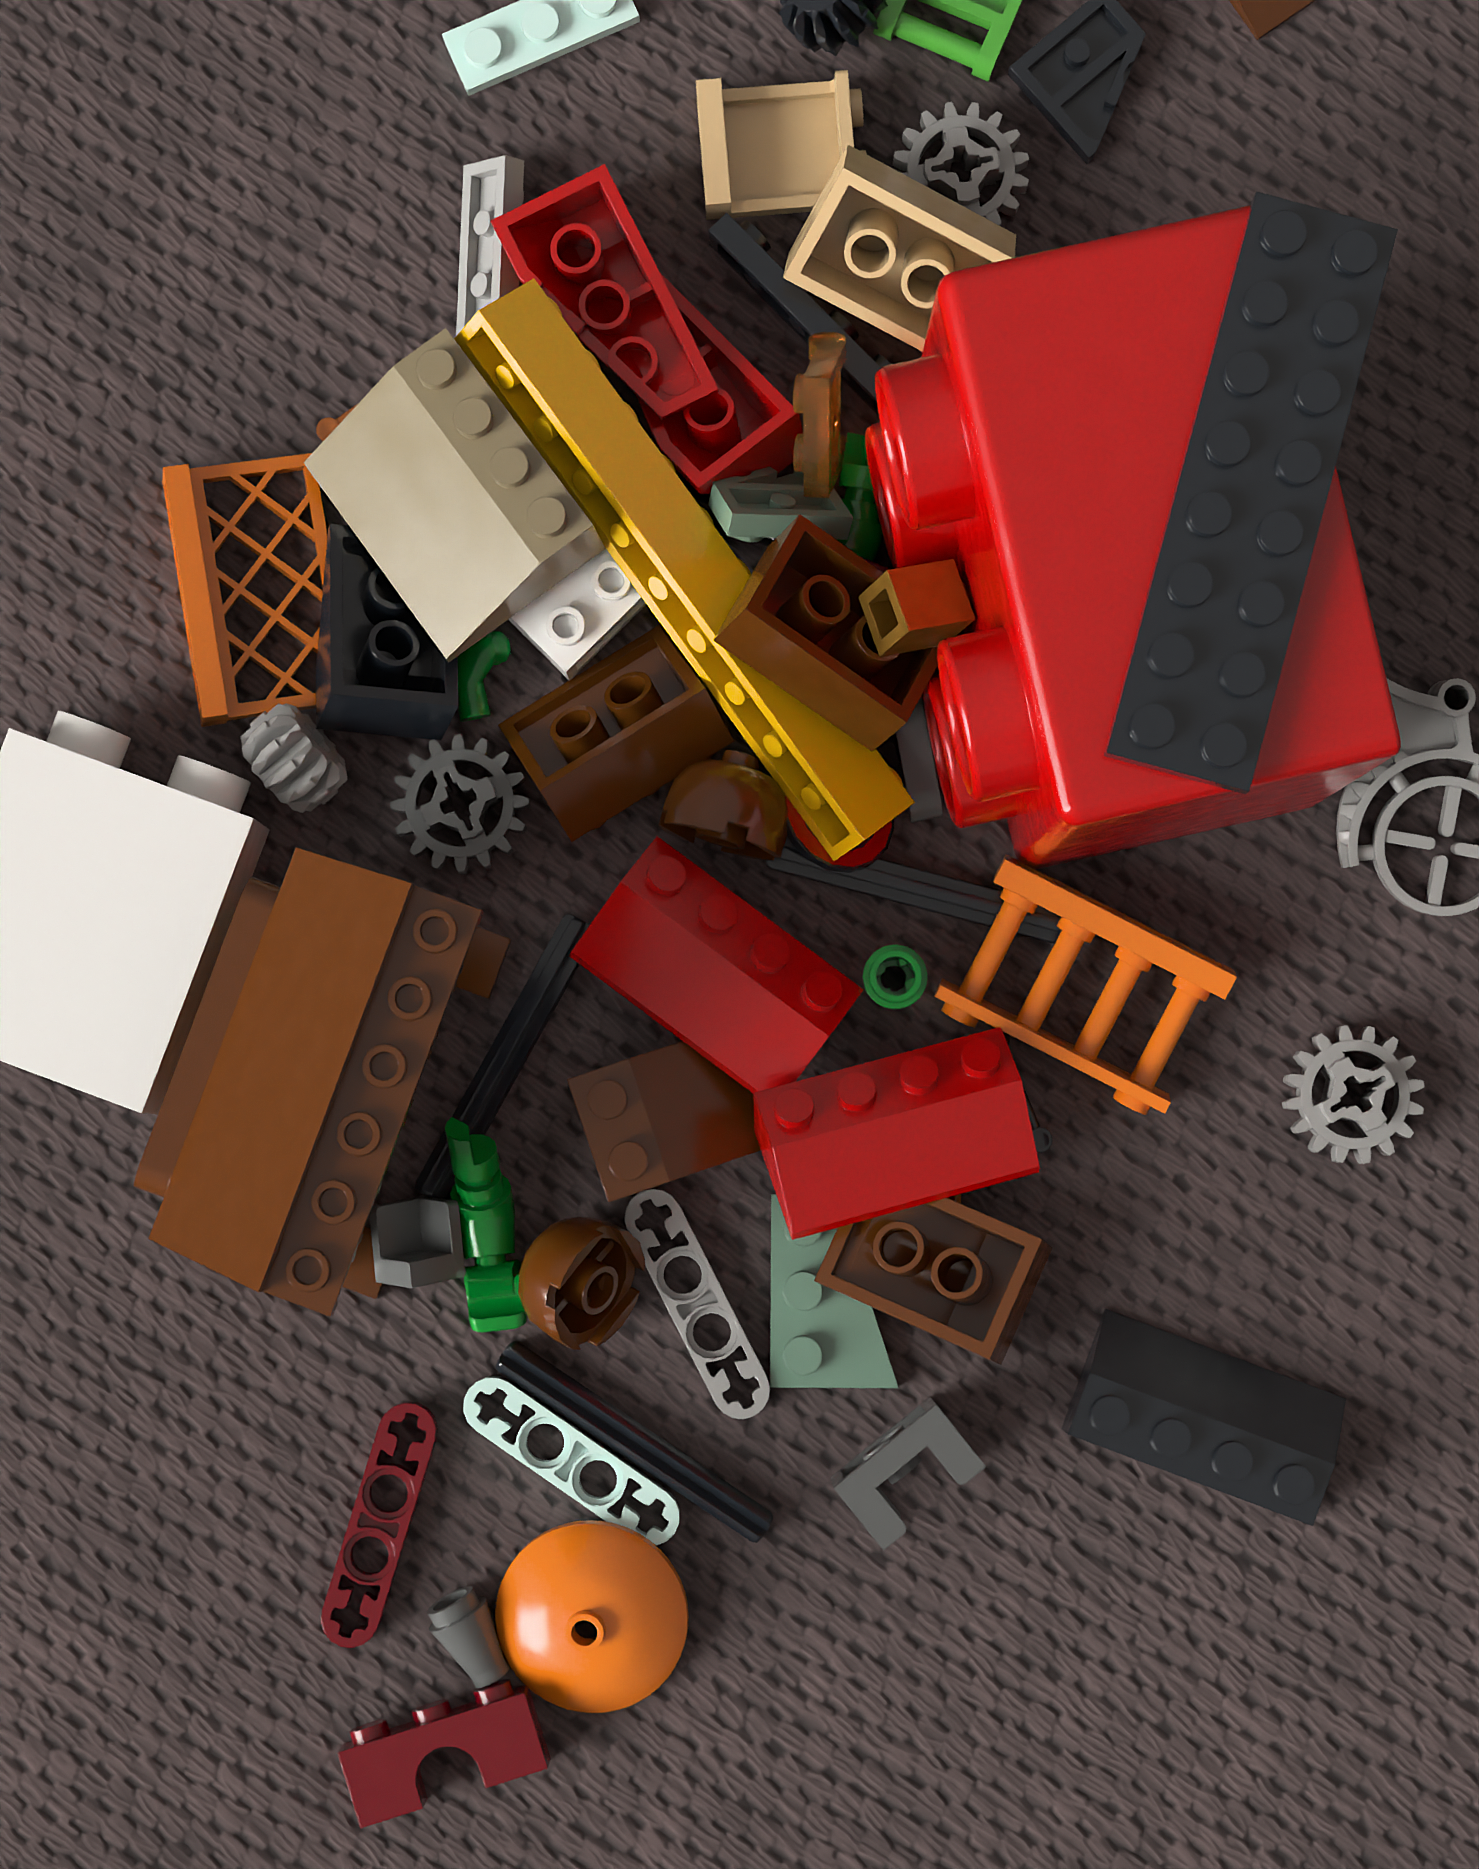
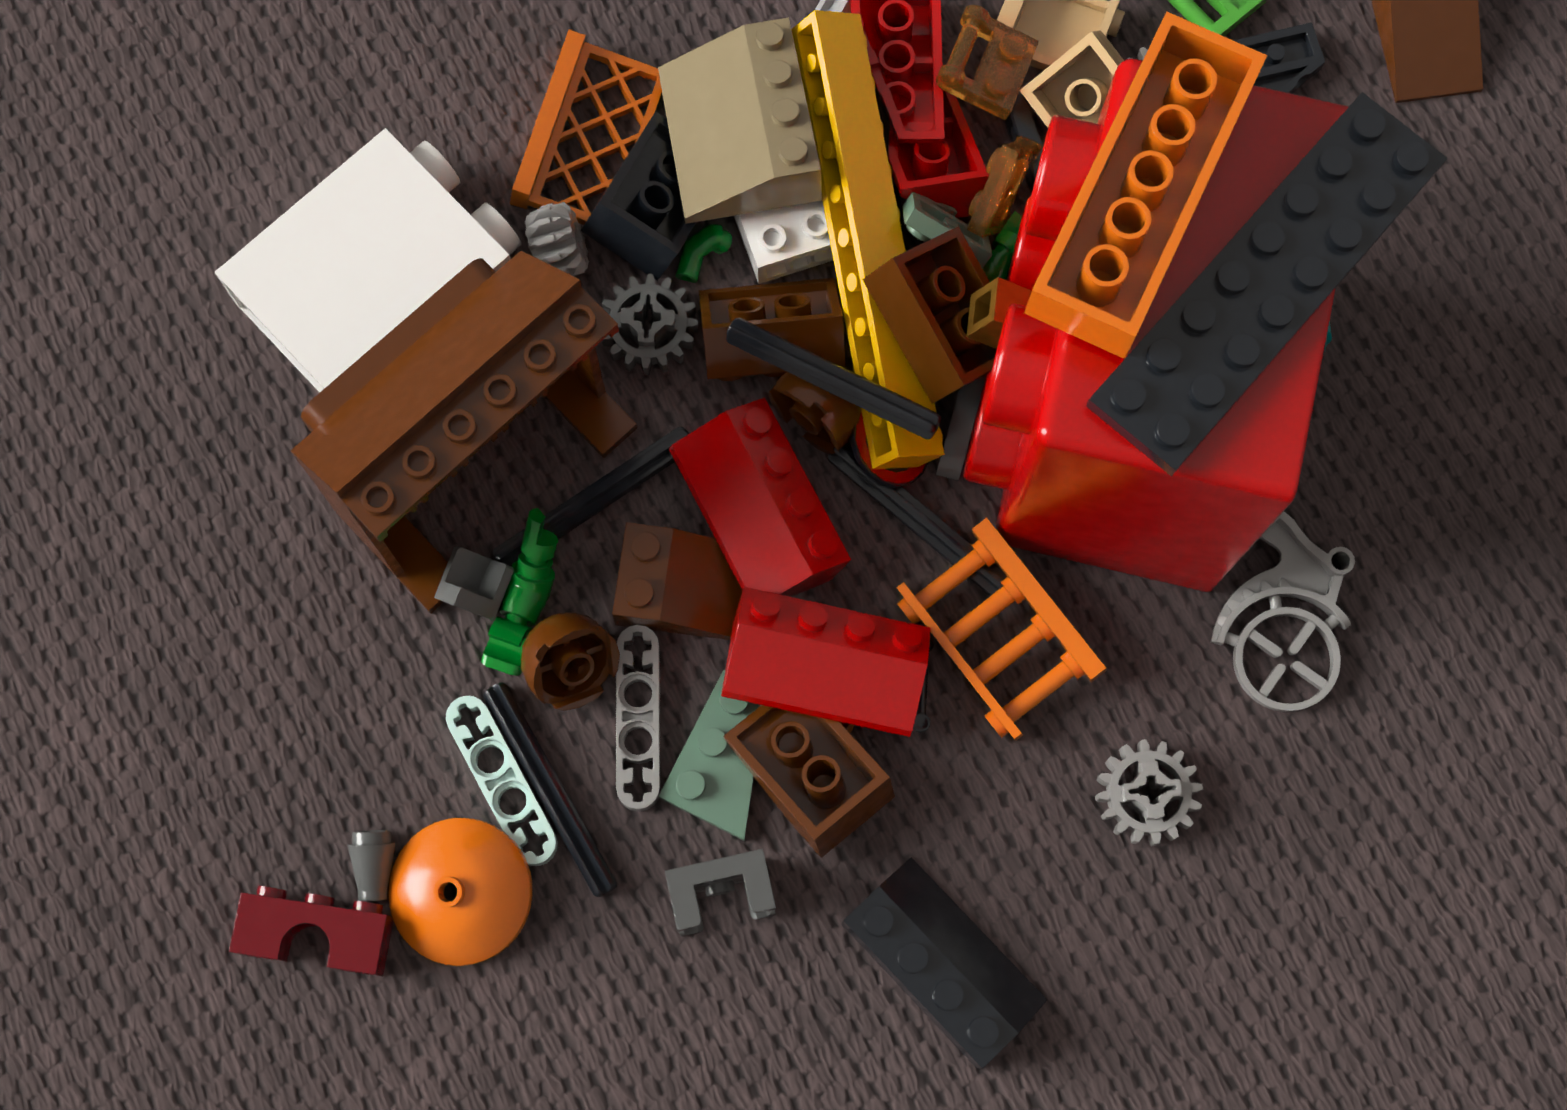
camera: 25 degrees right, 10 degrees down
(385, 1525) = (347, 754): dark red beam -> none
(736, 782) = (833, 378): none -> black axle
(742, 252) = (1001, 66): none -> clear orange plate
(908, 963) = (879, 552): green cone -> none
(1052, 449) = (1144, 185): none -> orange brick

